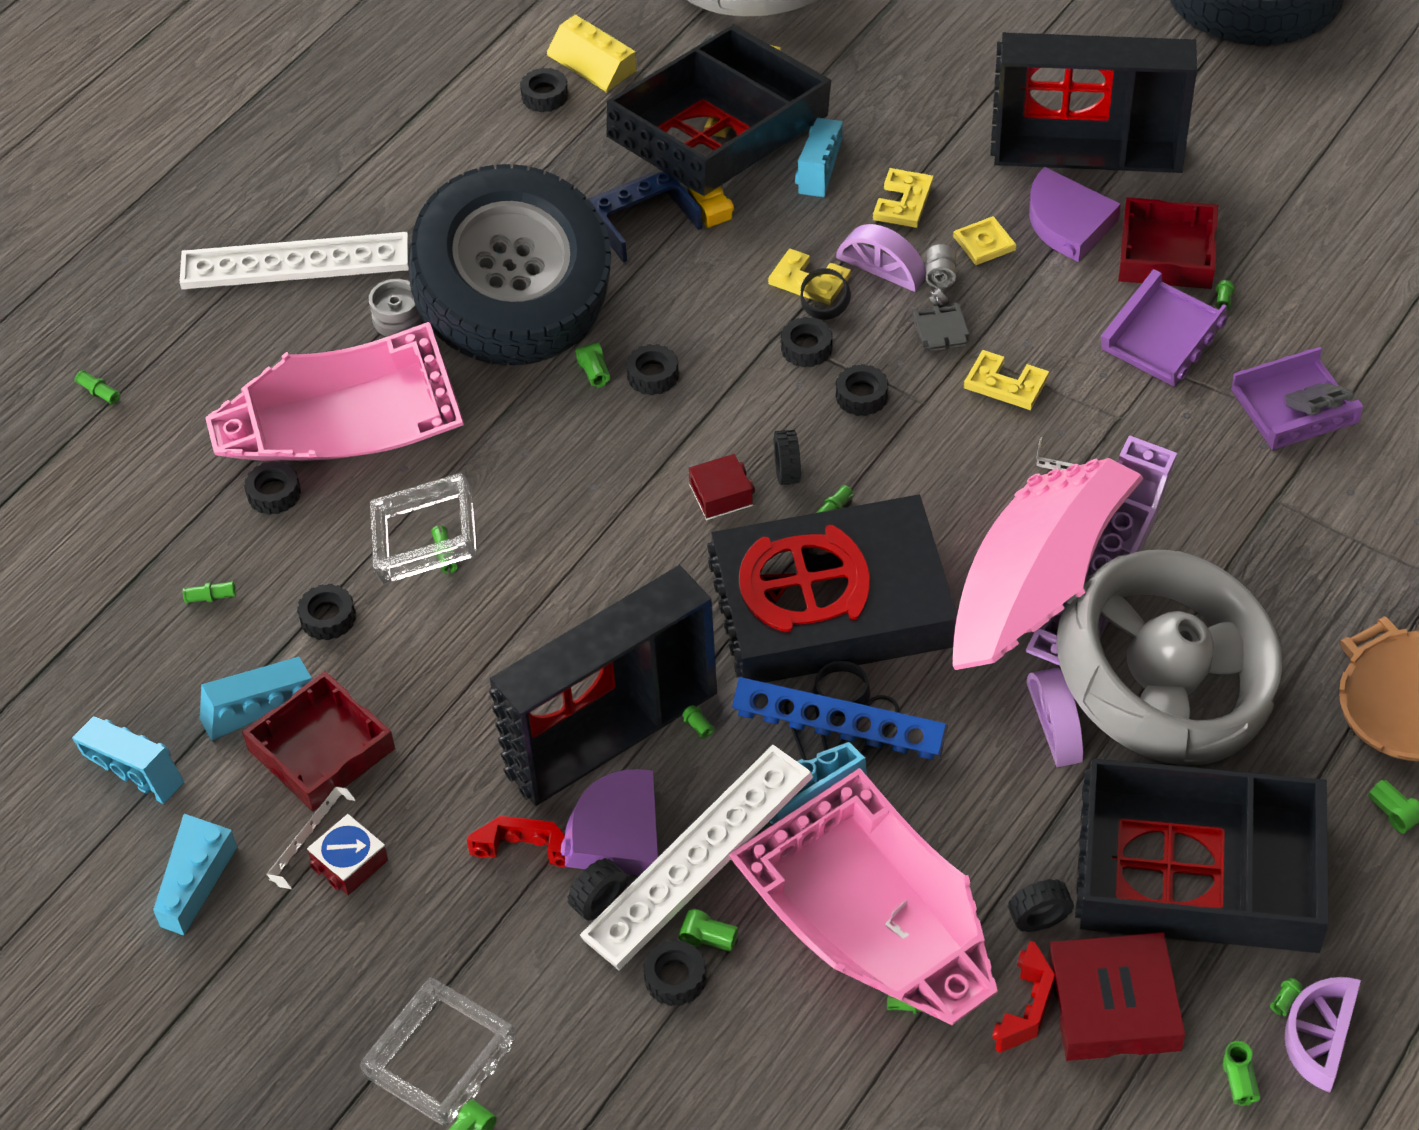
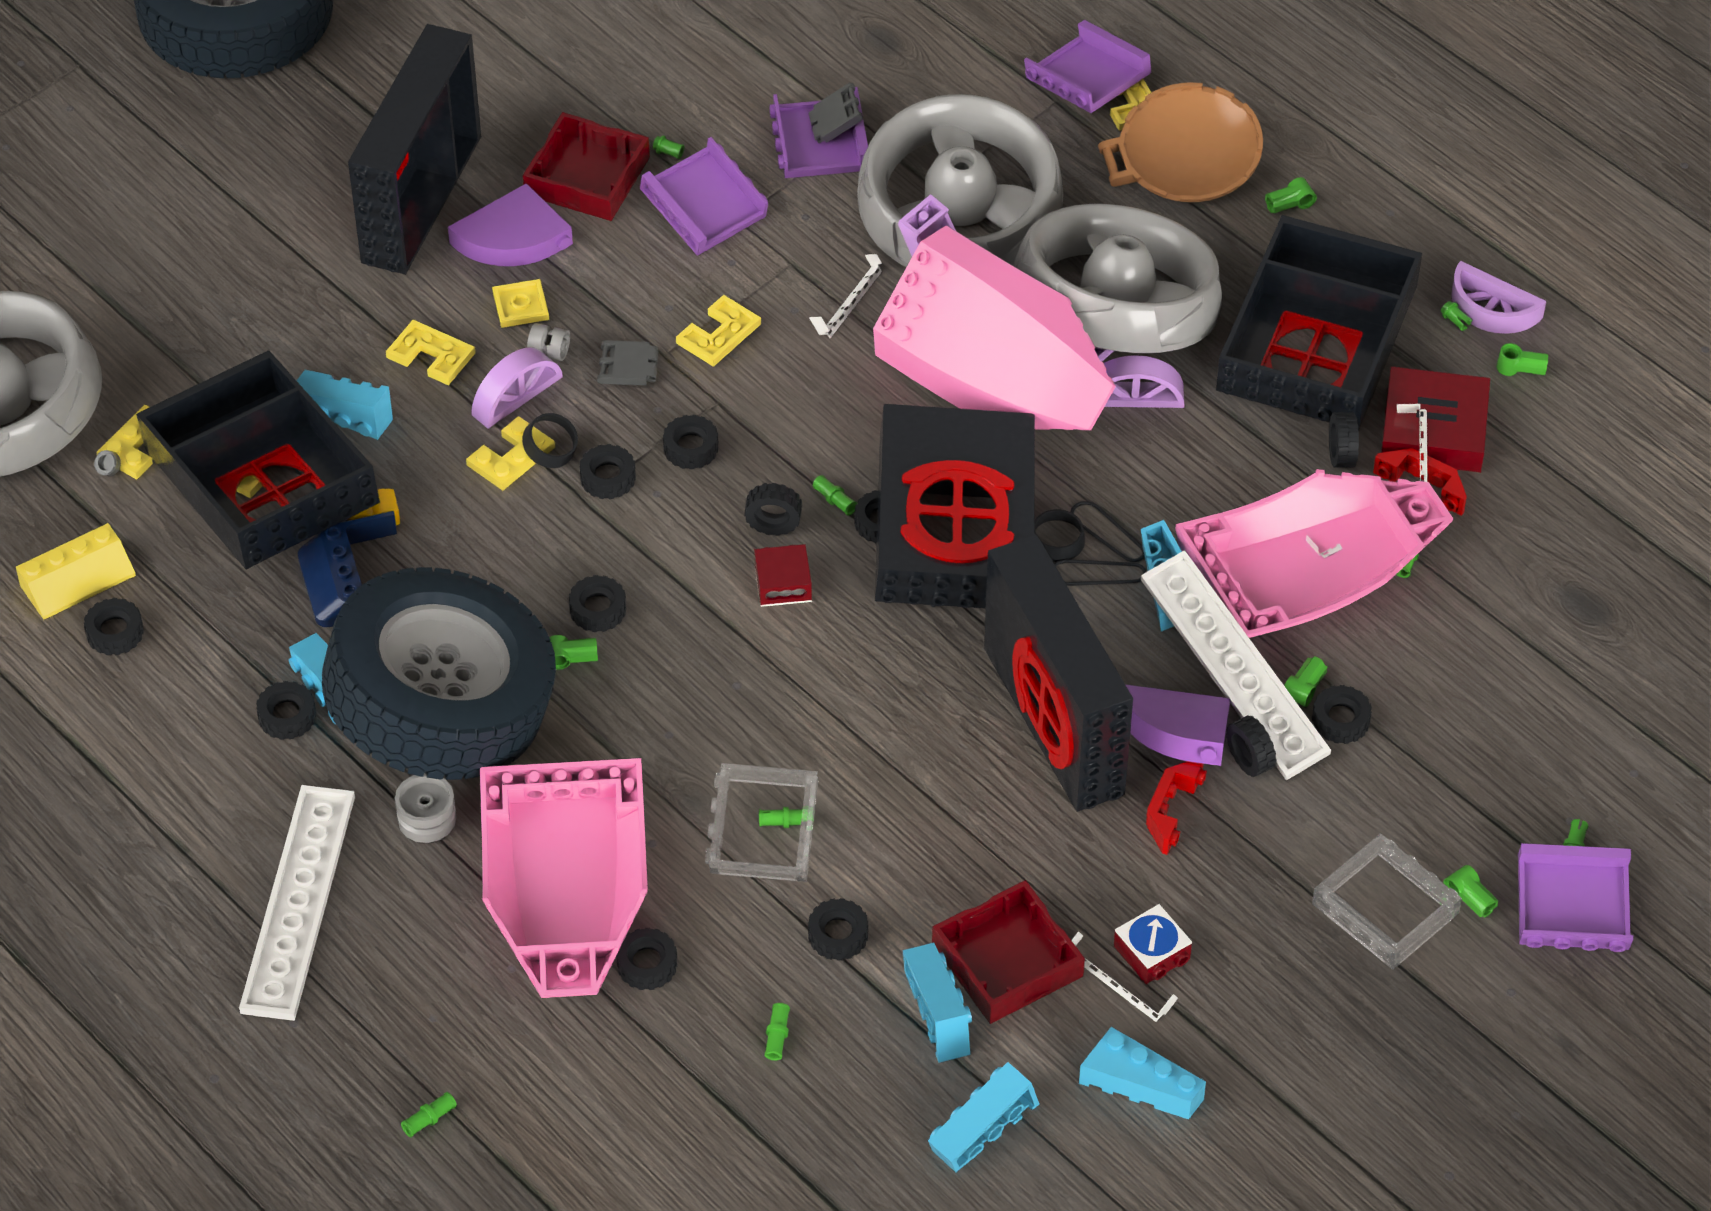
camera: 80 degrees left, 0 degrees up
(749, 691) = (1109, 525): blue brick -> none
(938, 297) = (587, 355): flat silver plate -> none
(1048, 977) = (1412, 408): none -> white piece
(1265, 508) = (960, 173): none -> light grey wheel

